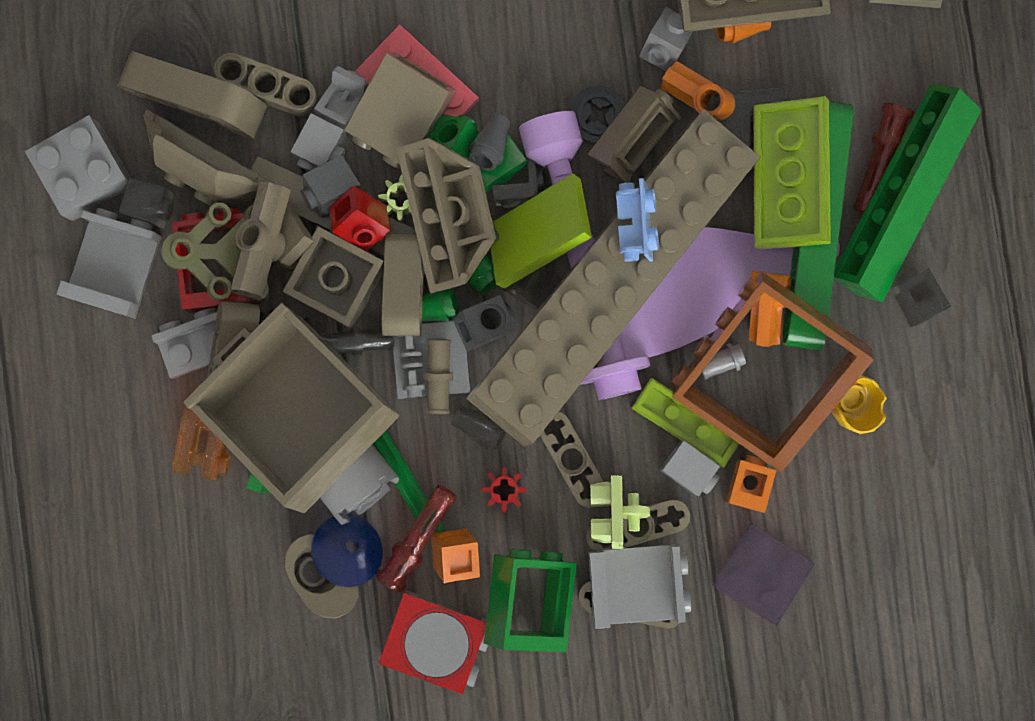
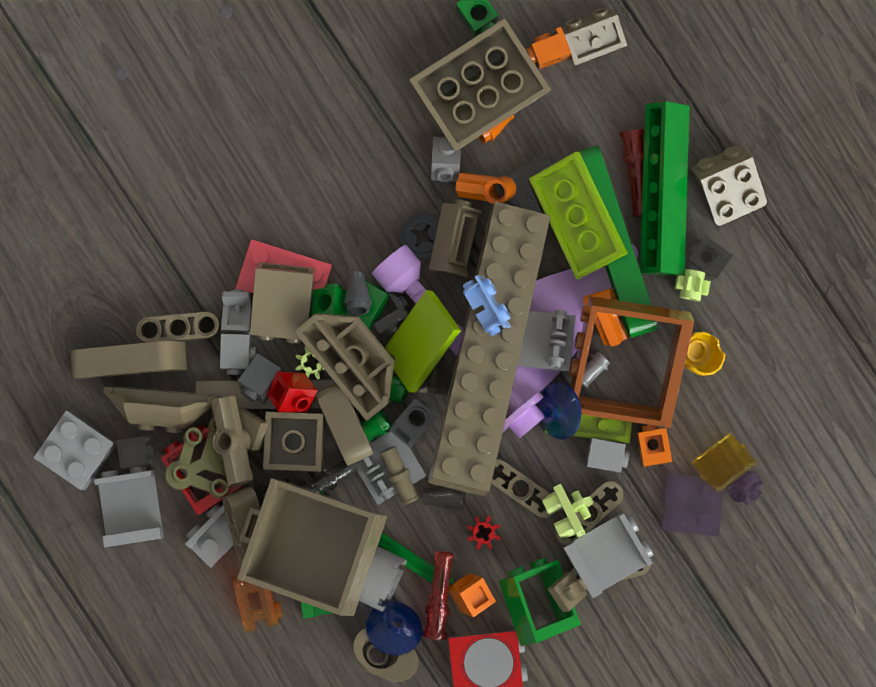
camera: 25 degrees left, 0 degrees up
(570, 606) = (568, 591): none -> dark tan tile
(662, 391) = (560, 410): none -> clear blue dish
(686, 302) = (548, 340): none -> light grey hinge
(823, 543) = (723, 462): none -> clear yellow piece
(834, 582) = (745, 488): none -> clear purple gear
(885, 319) = (692, 285): none -> yellowish green gear
(984, 224) = (730, 184): none -> bracket

